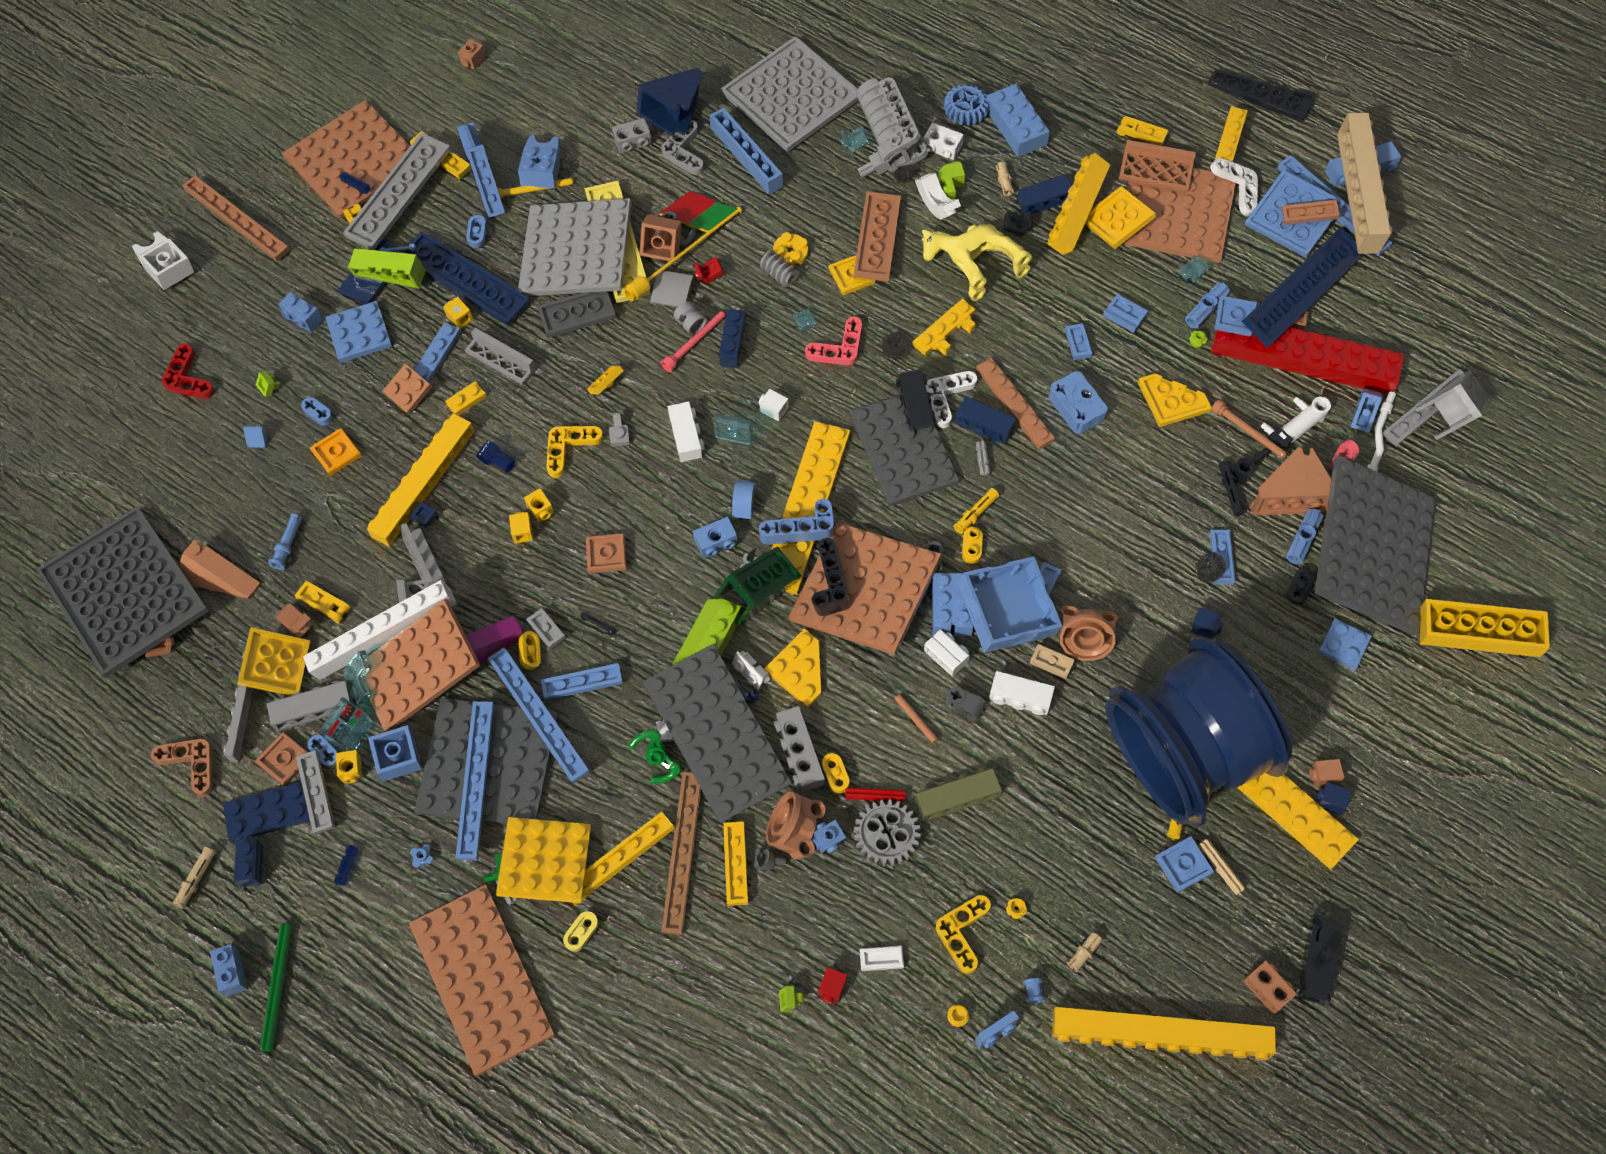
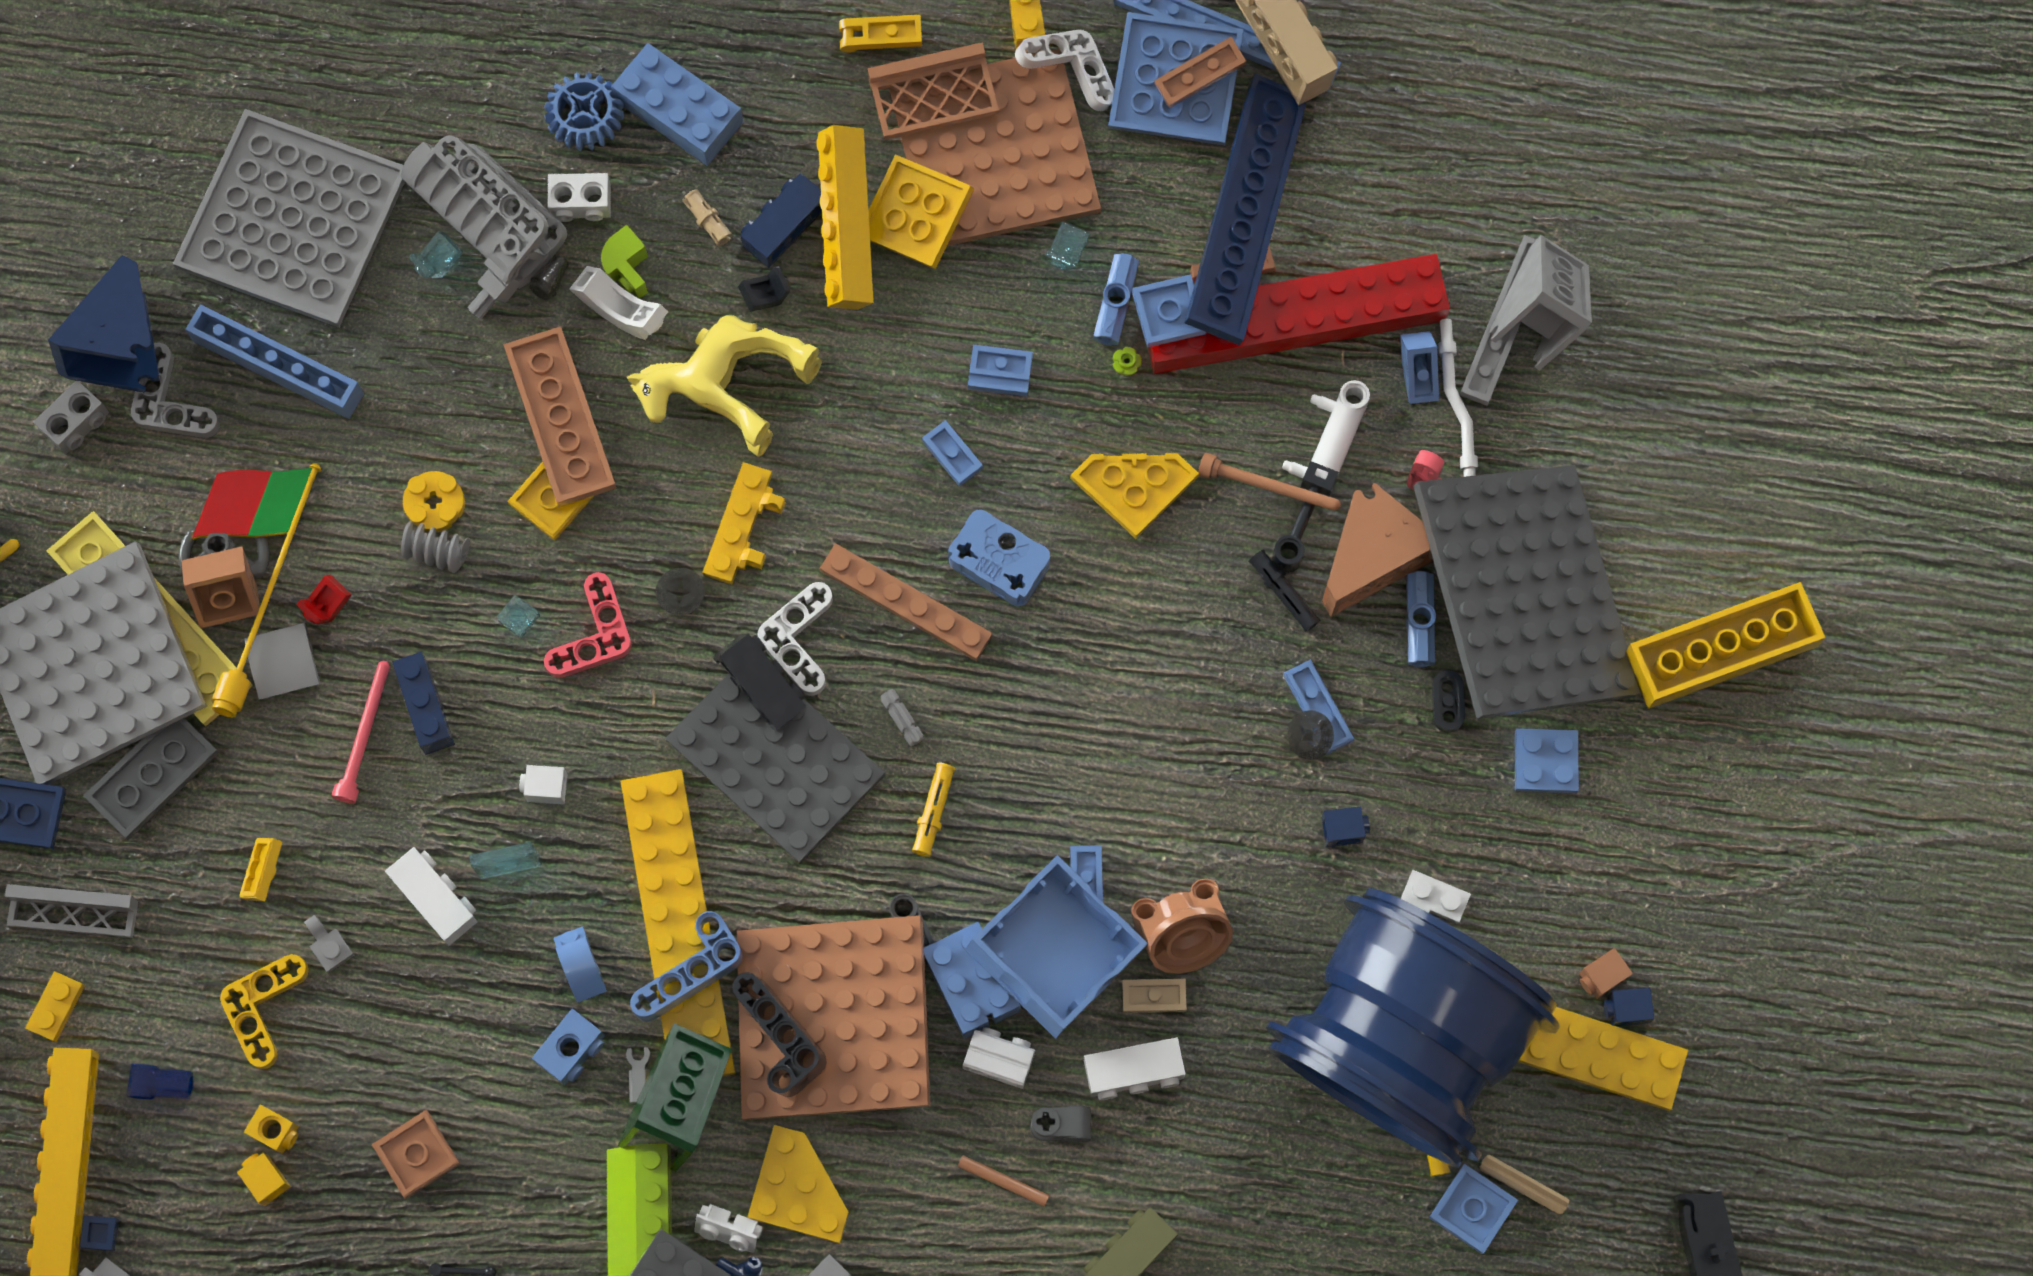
camera: 30 degrees left, 10 degrees up
(690, 317) = (340, 700): light grey wheel -> none
(972, 544) = (953, 866): yellow plate -> none
(985, 420) = (876, 656): dark blue brick -> none

